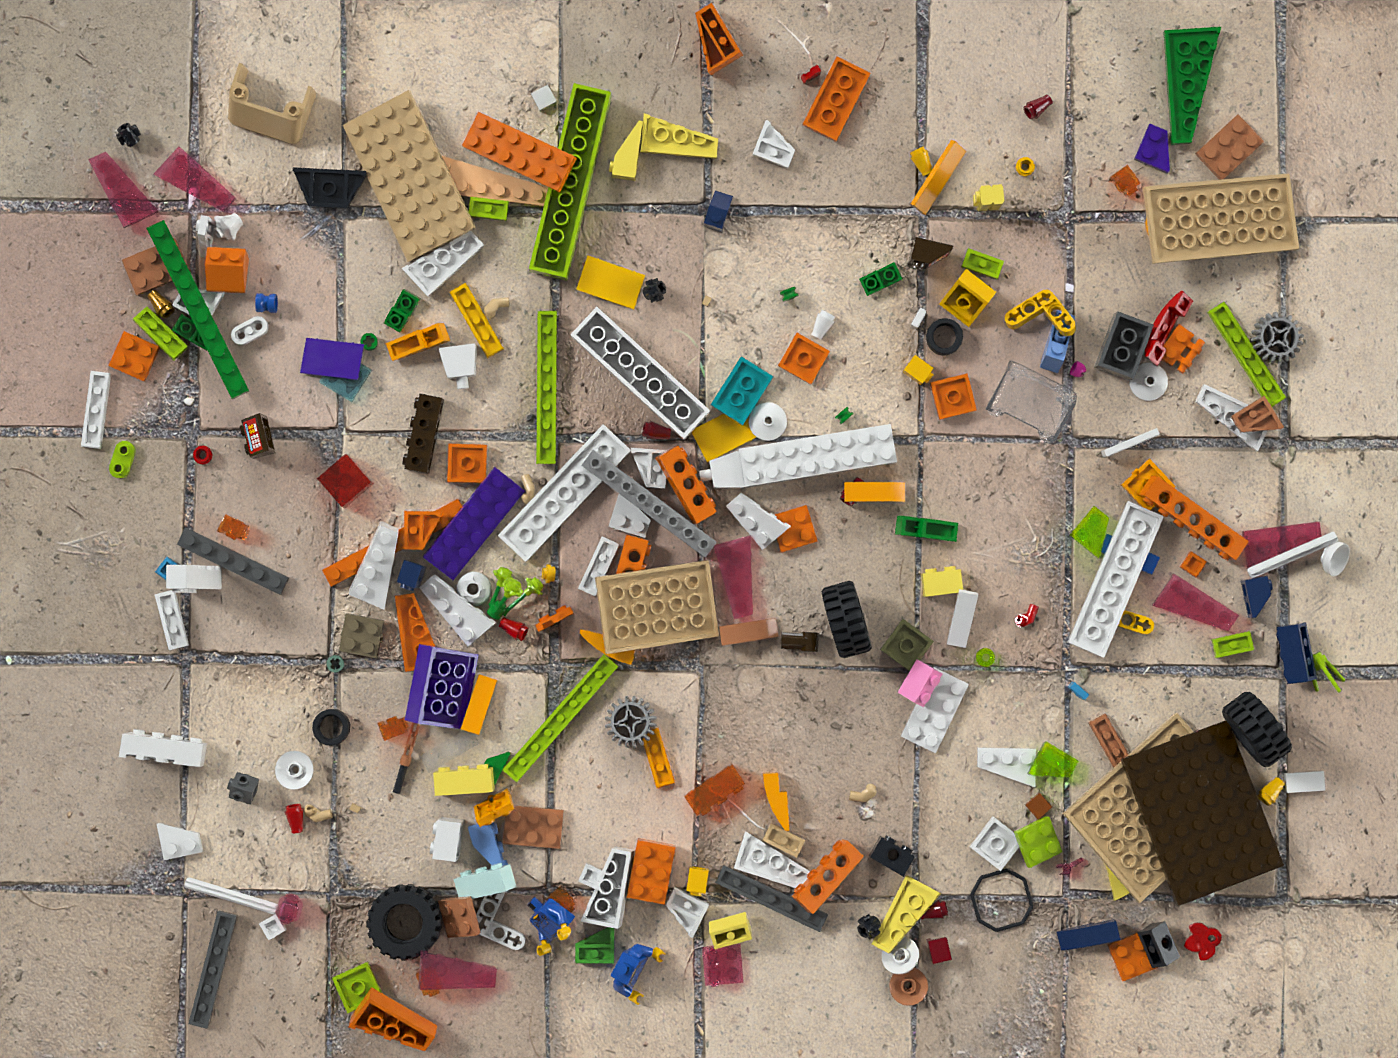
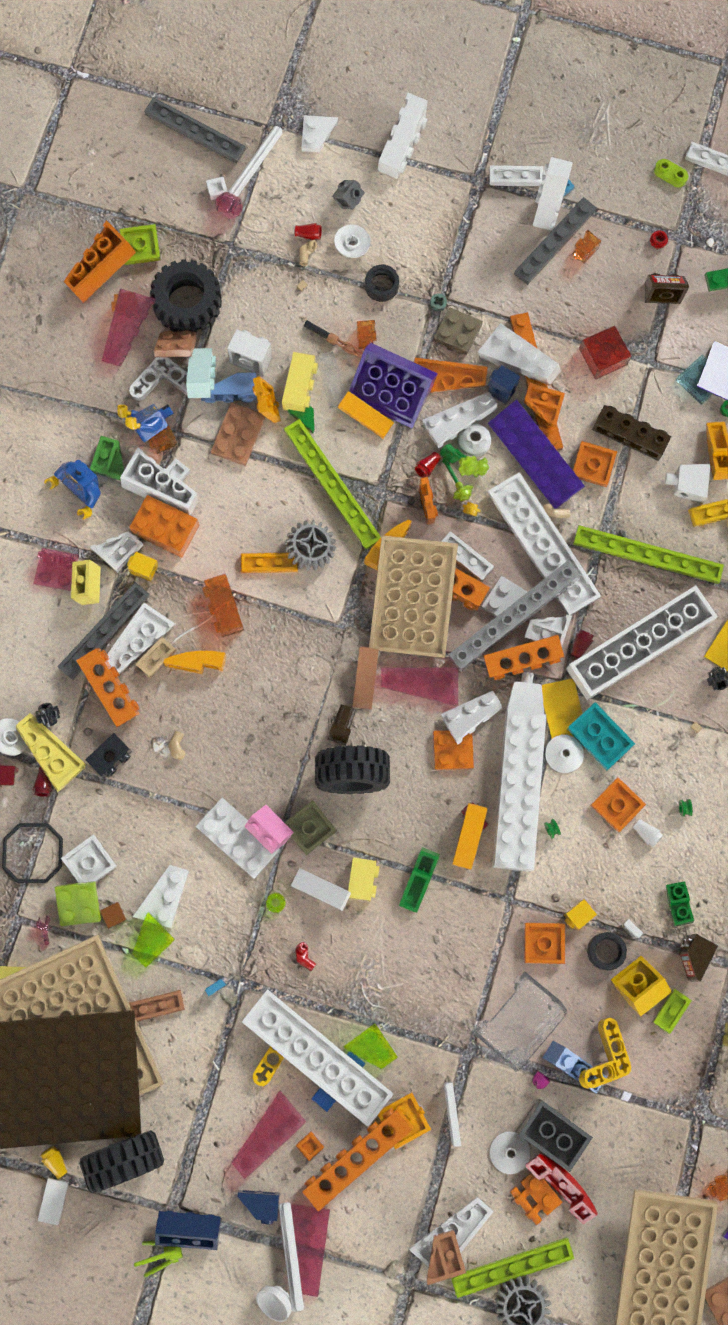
camera: 100 degrees right, 10 degrees down
(1232, 644) = (216, 1164): lime plate -> none

